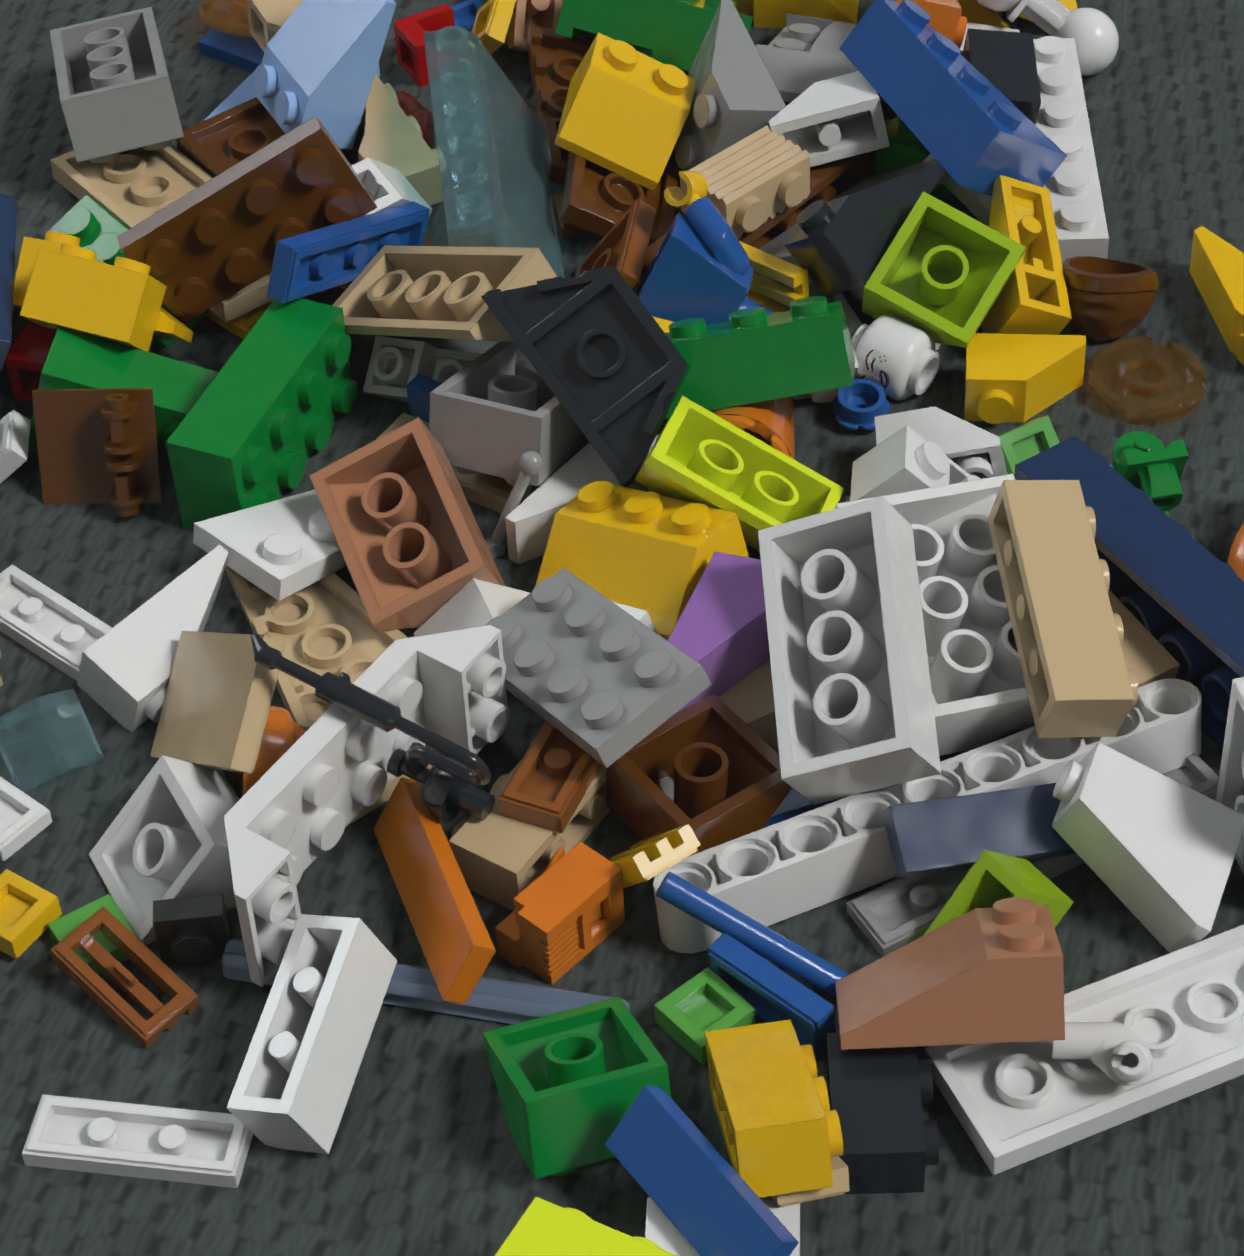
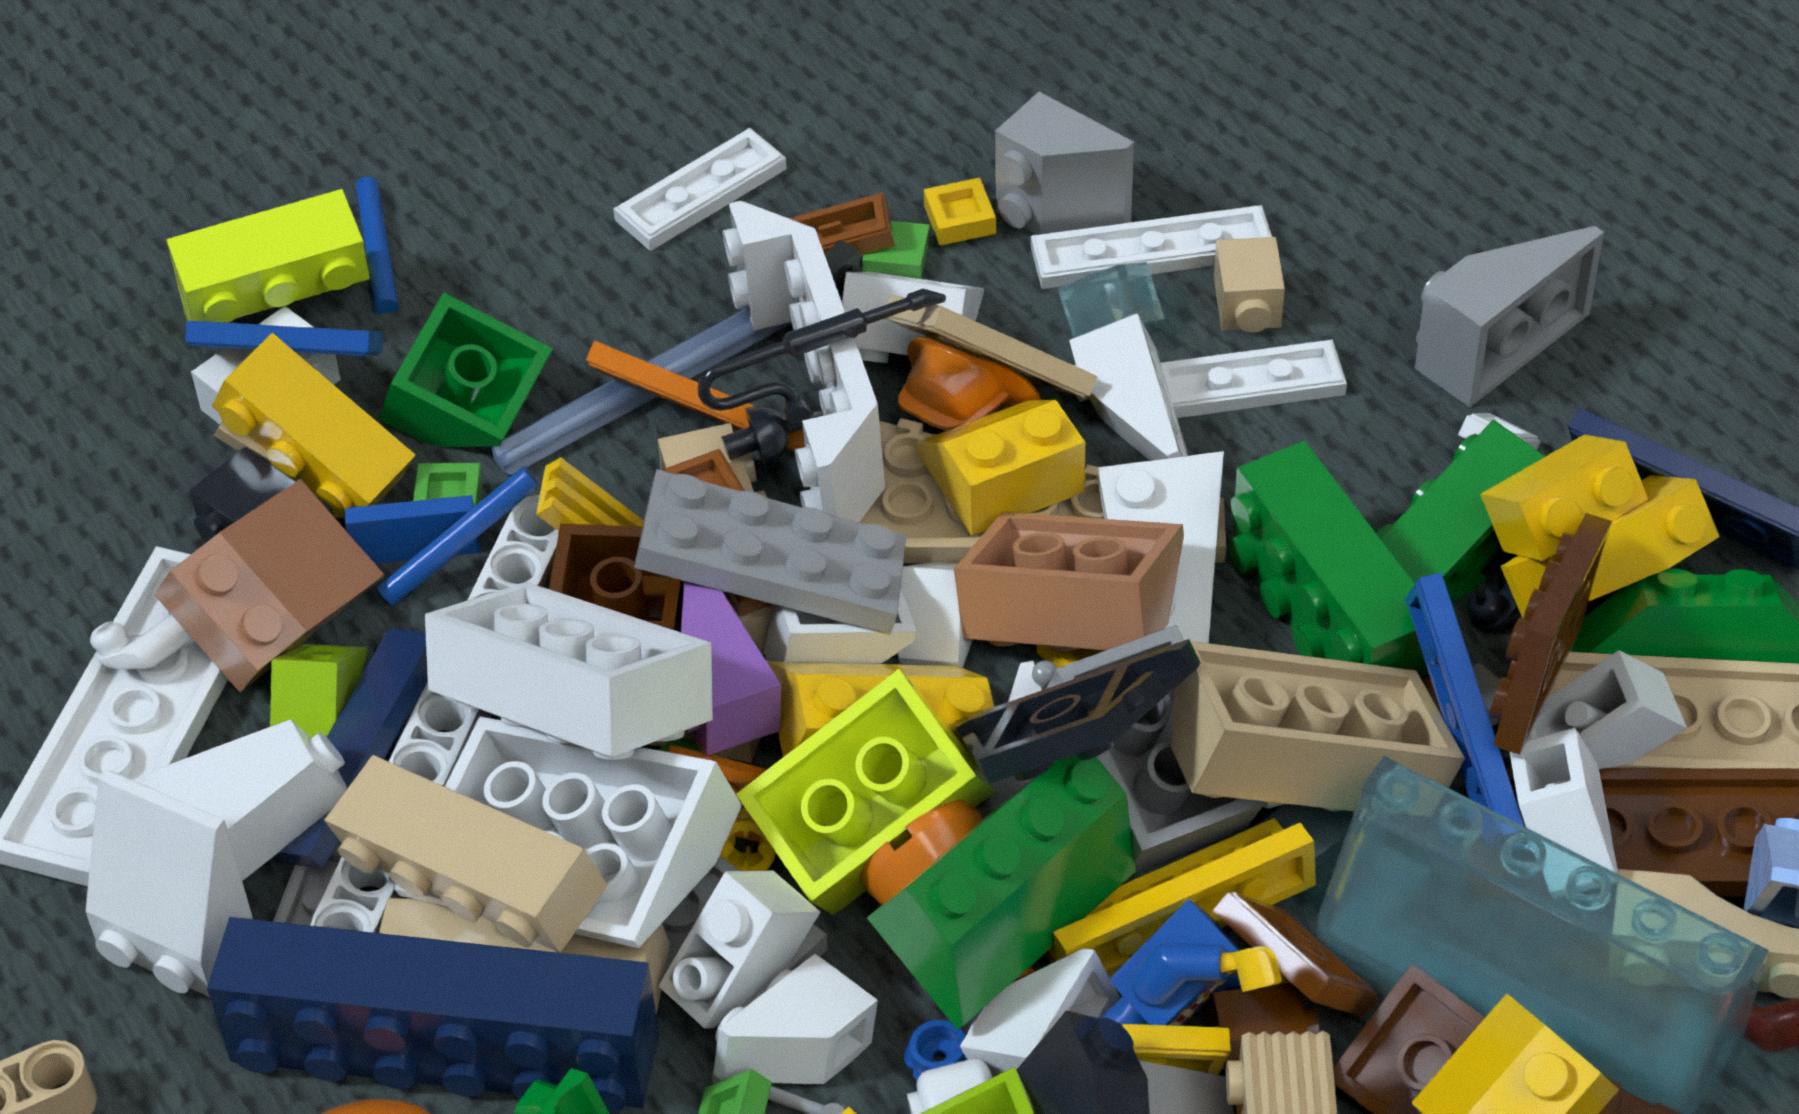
camera: 130 degrees right, 5 degrees up
(98, 447) = (1394, 466): reddish brown hinge -> none
(312, 1033) = (650, 265): white brick -> none
(324, 629) = (1007, 462): none -> yellow slope
(563, 913) = (611, 451): orange piece -> none

